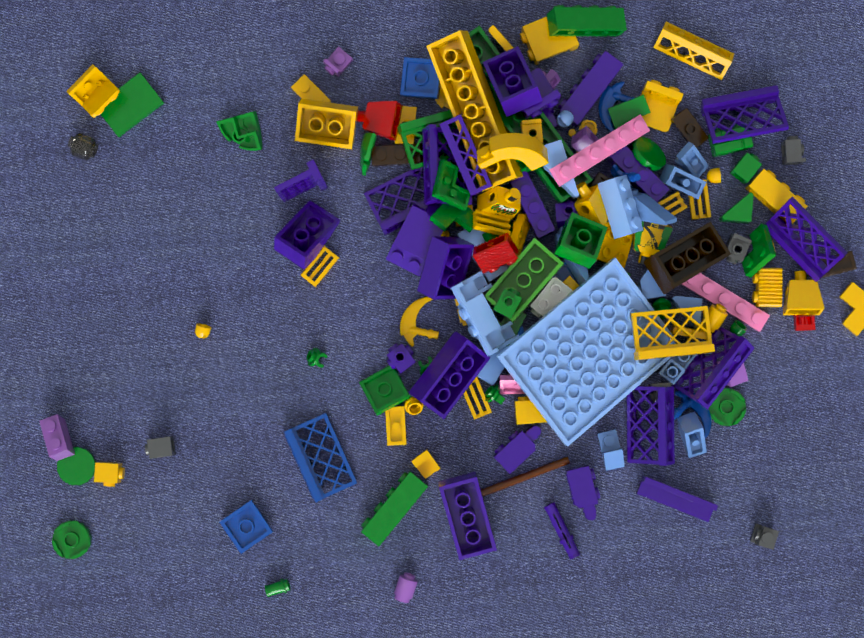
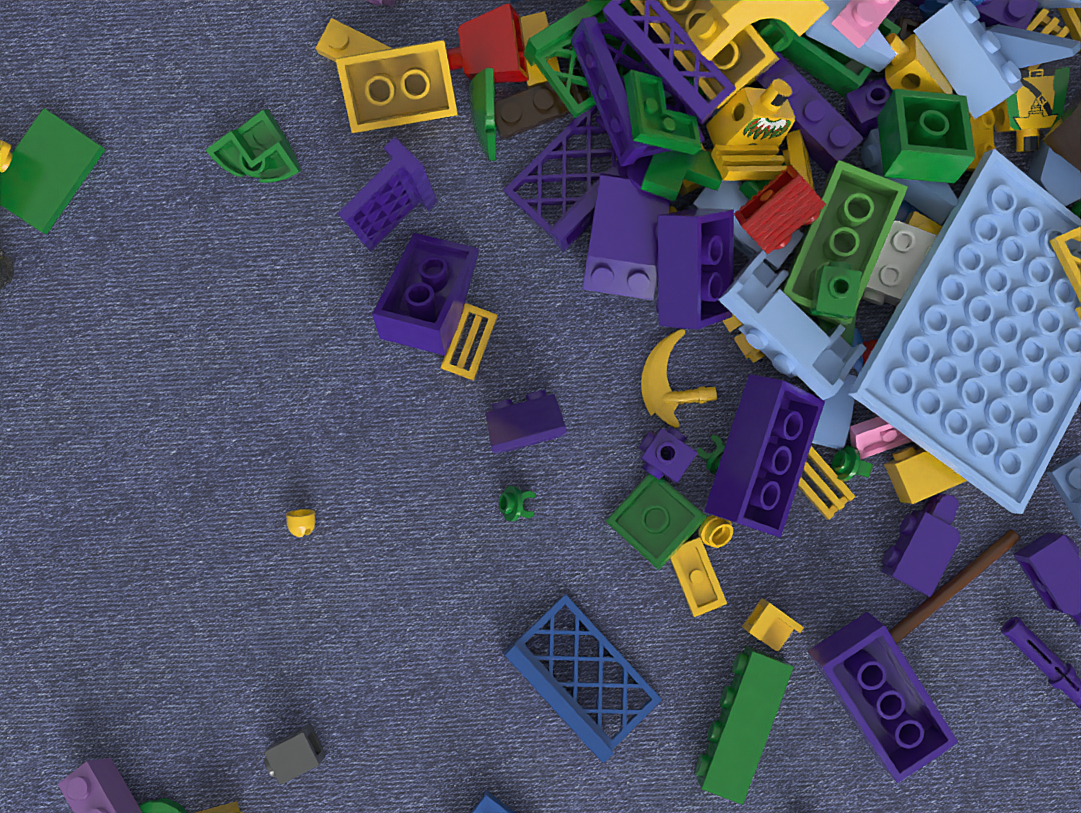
camera: 20 degrees left, 0 degrees up
(333, 318) = (524, 423): none -> dark purple slope

